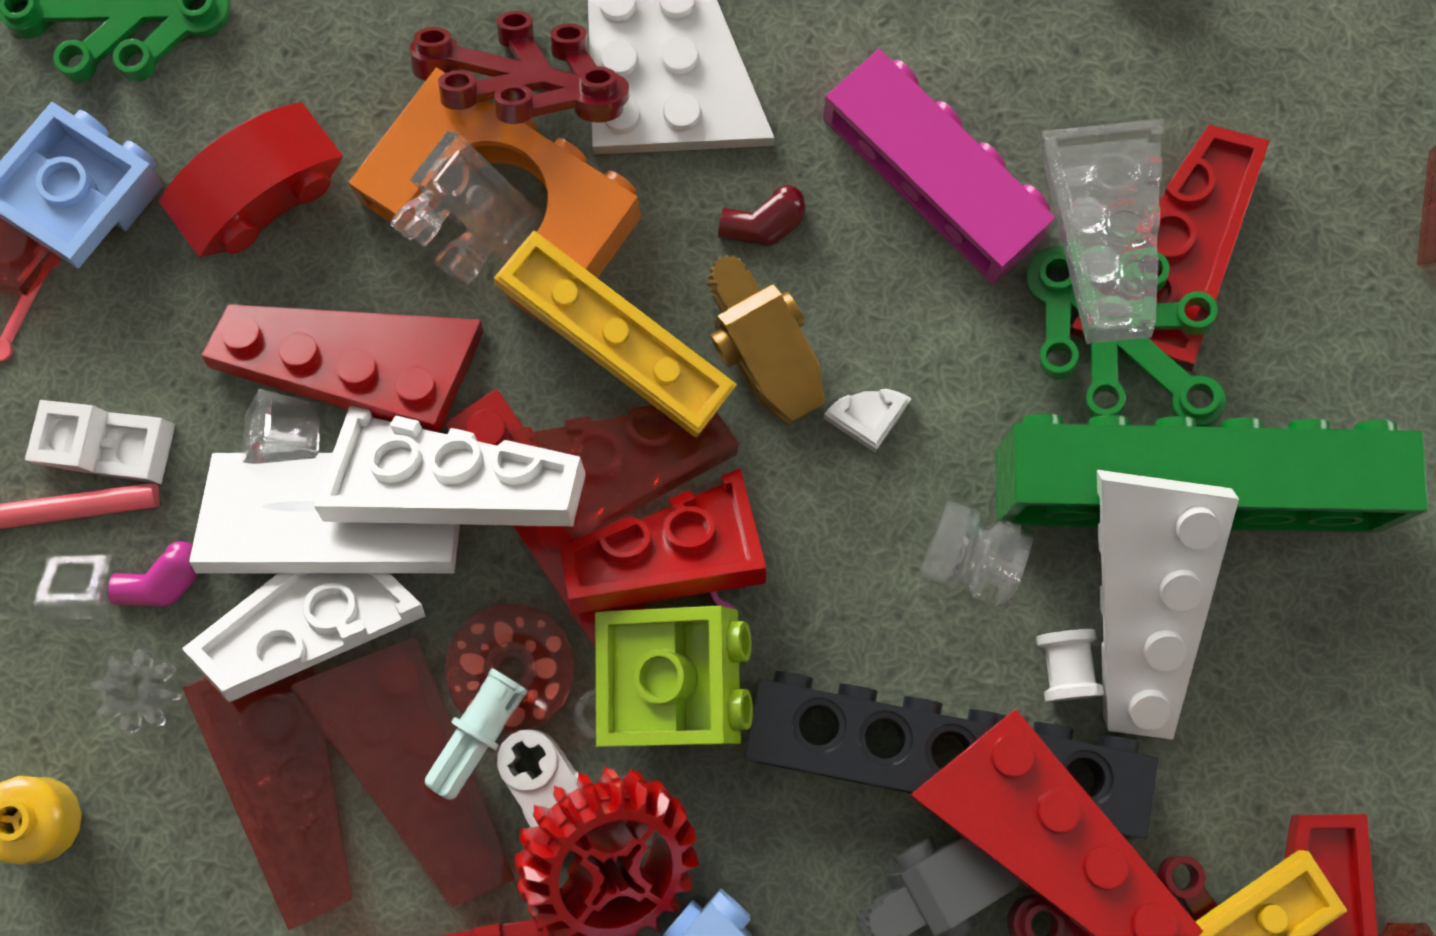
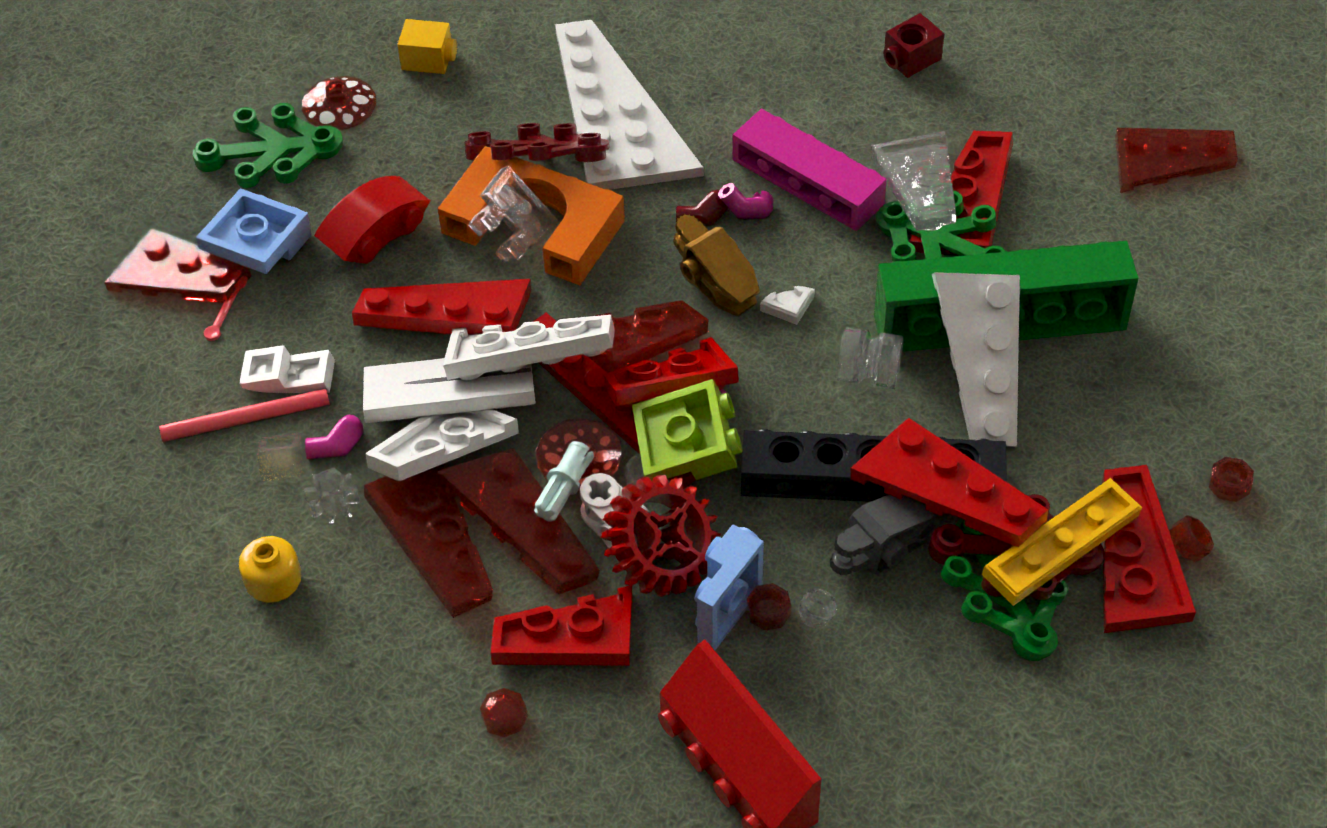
camera: 10 degrees left, 25 degrees down
(280, 429) = (406, 348): clear slope -> none
(614, 333) = (621, 265): yellow tile -> none
(824, 224) = (746, 208): none -> dark pink arm
(1070, 665) = (942, 411): white bush -> none

